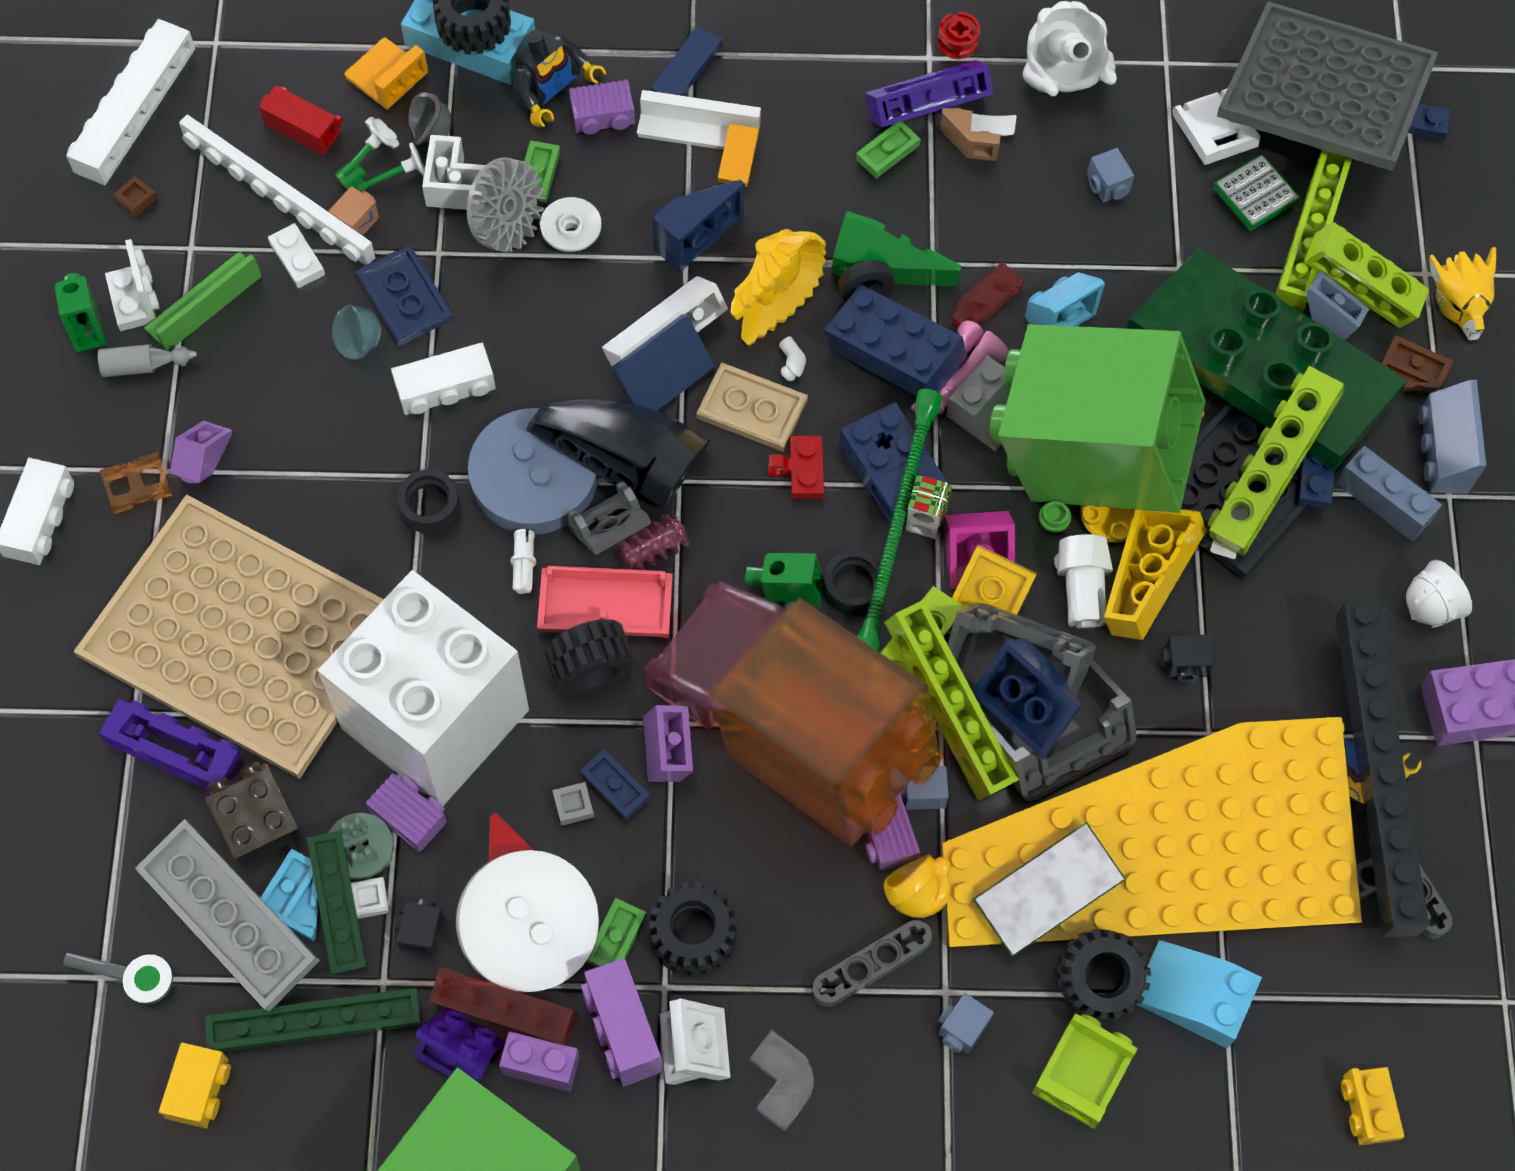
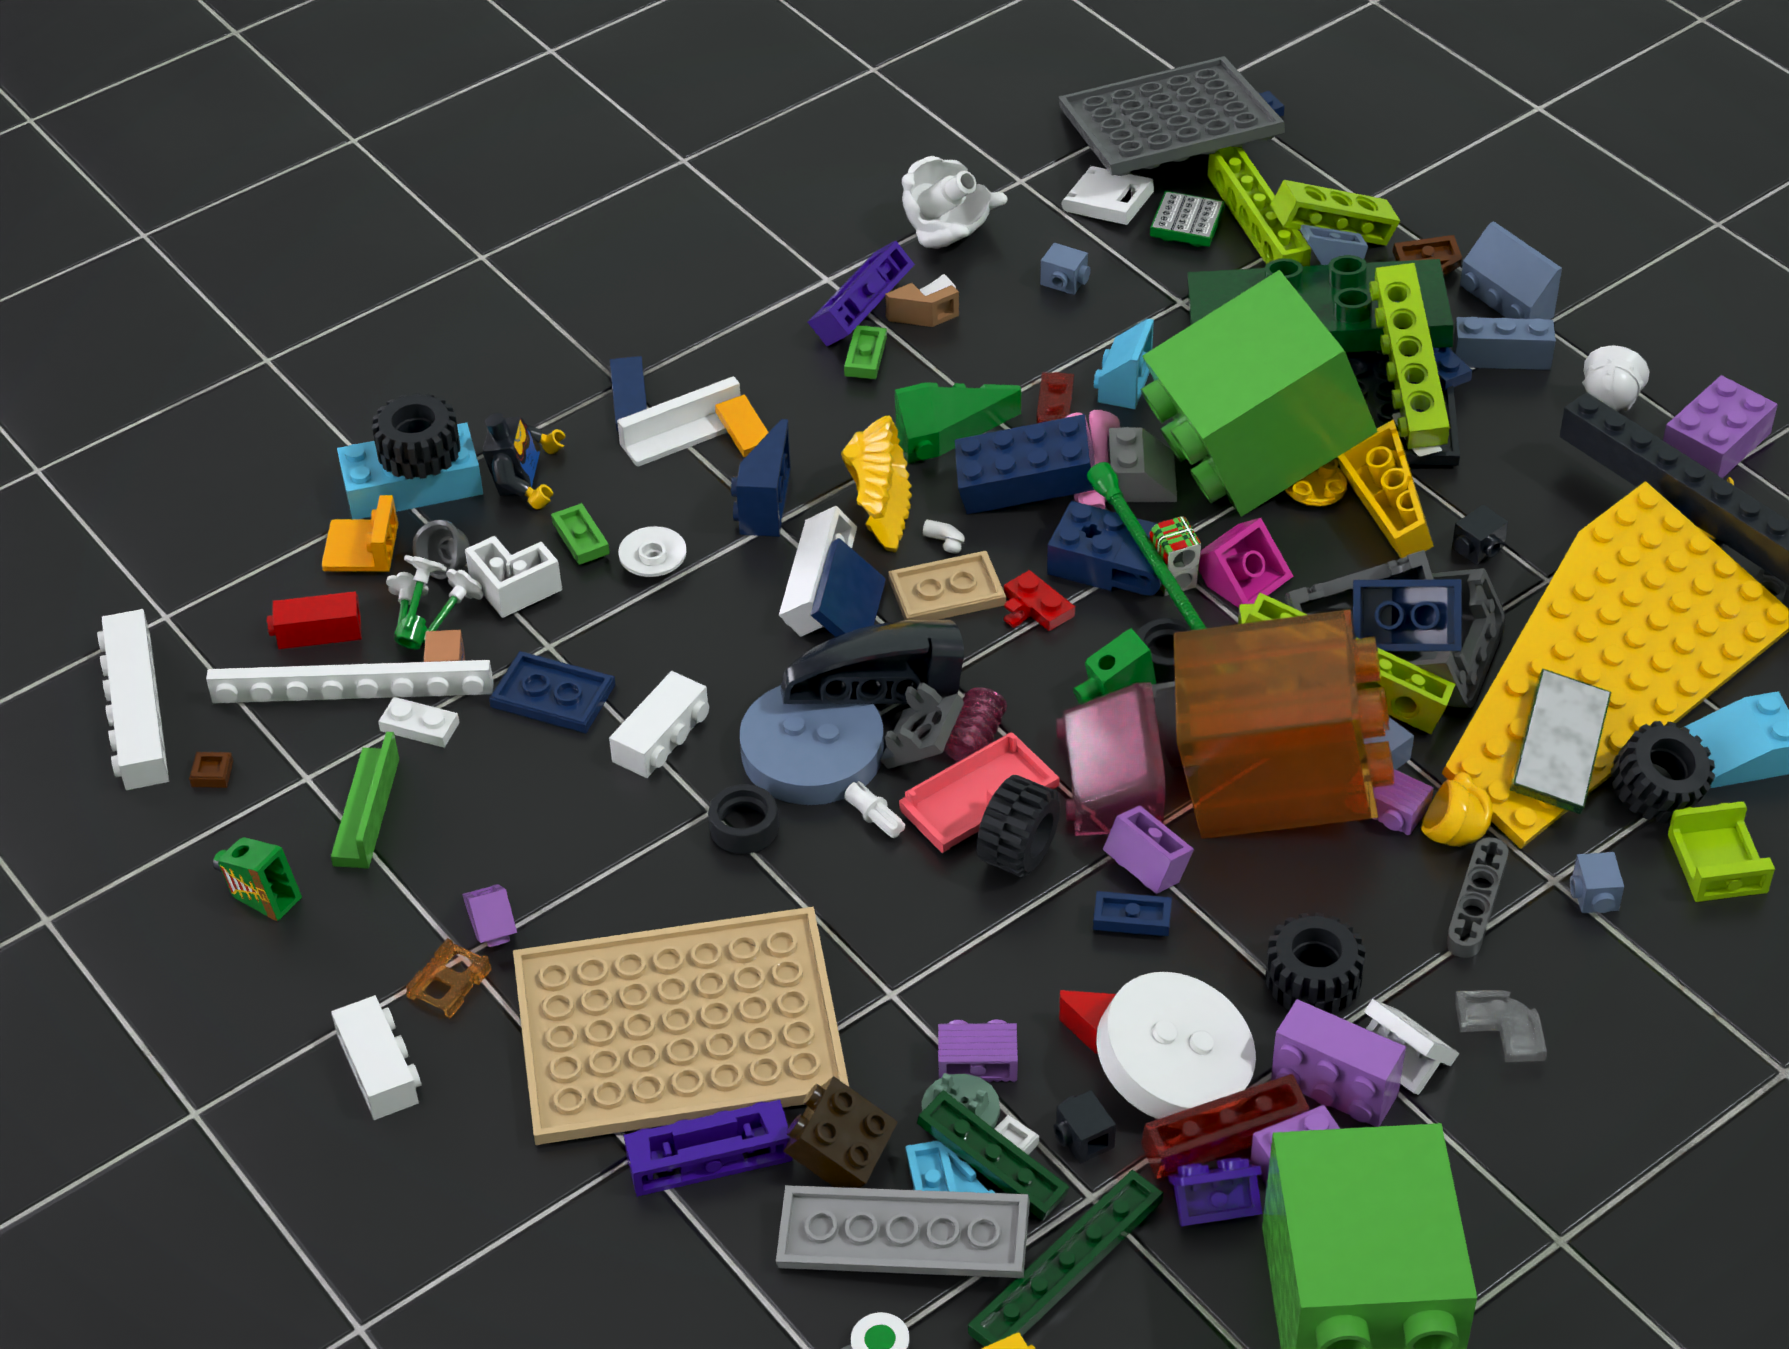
camera: 35 degrees left, 20 degrees down
(132, 291) = (296, 826): white bracket -> none
(139, 359) = (352, 882): light grey wheel -> none
(355, 331) = (541, 737): clear light blue helmet -> none
(426, 687) = (917, 915): white brick -> none
(504, 204) = (586, 560): light grey wheel -> none
(573, 803) = (1112, 950): light grey plate -> none
(602, 107) = (588, 457): medium lavender brick -> none
(616, 933) = (1258, 1012): bright green plate -> none
(867, 271) = (943, 437): black tyre -> none
(959, 34) = (839, 247): red wheel -> none
(994, 582) = (1282, 569): yellow plate -> none
(1055, 517) = (1274, 510): bright green plate -> none
(1084, 564) = (1338, 521): white piece -> none
(1468, 287) = (1408, 179): yellow piece -> none

